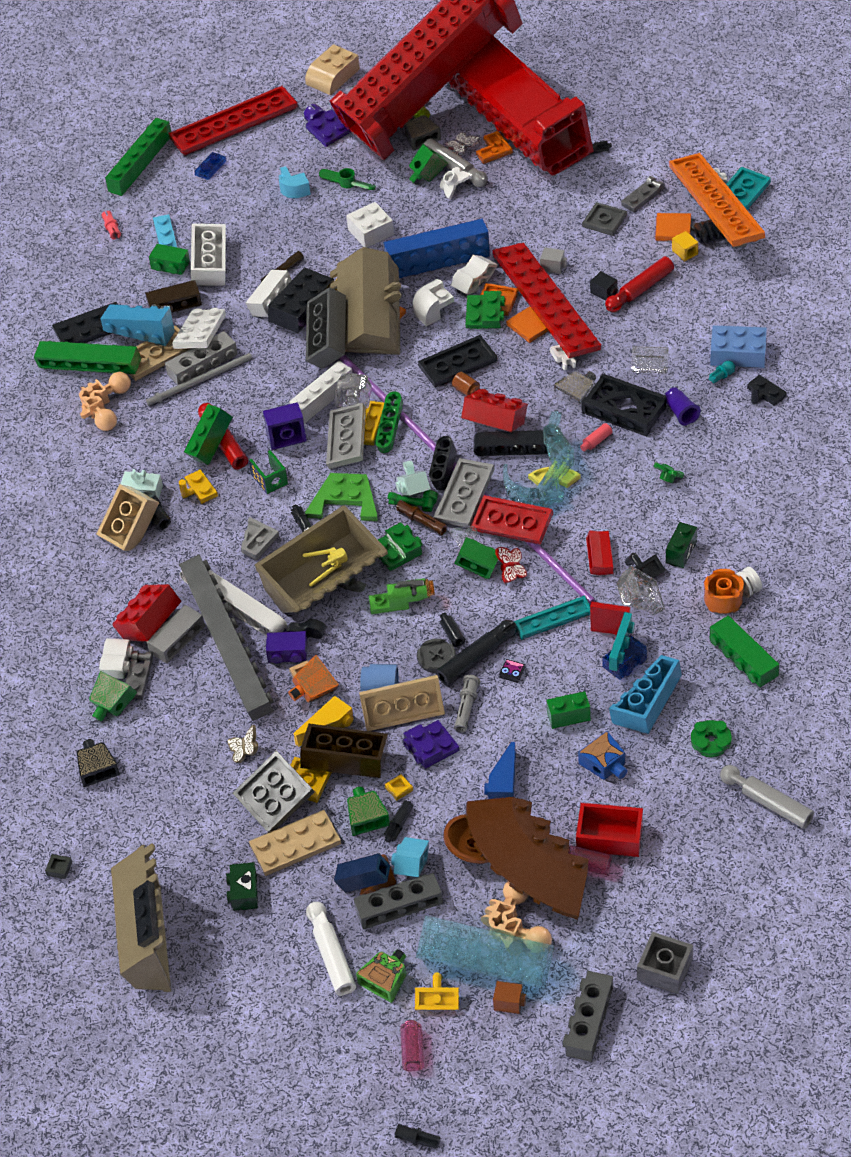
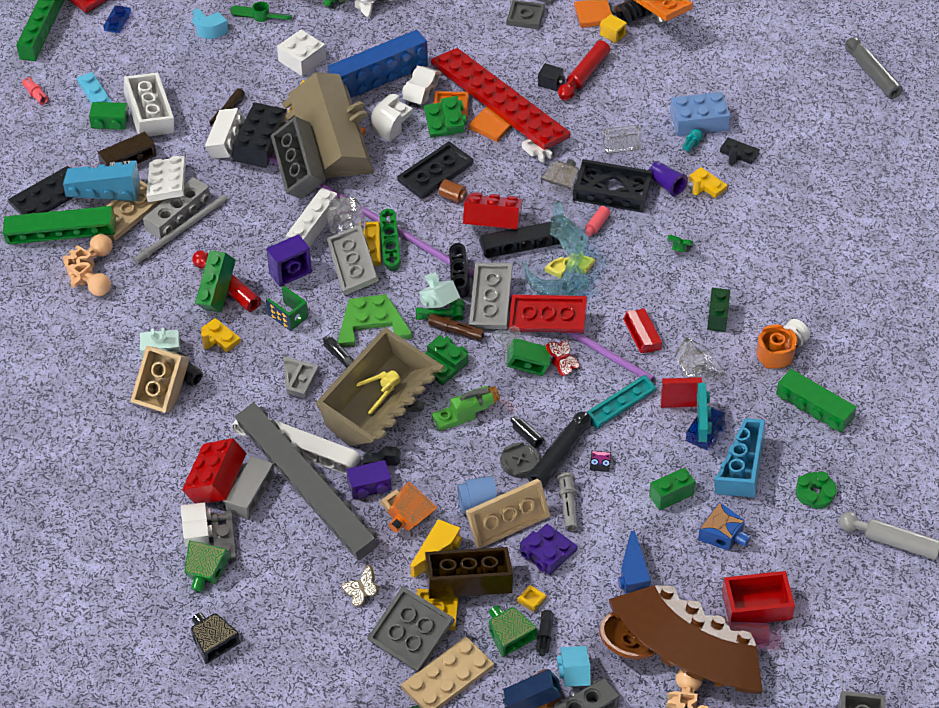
camera: 20 degrees left, 0 degrees up
(553, 260) = (493, 60): light grey brick -> none
(651, 566) = (697, 334): black plate -> none
(721, 416) = (705, 181): none -> yellow plate

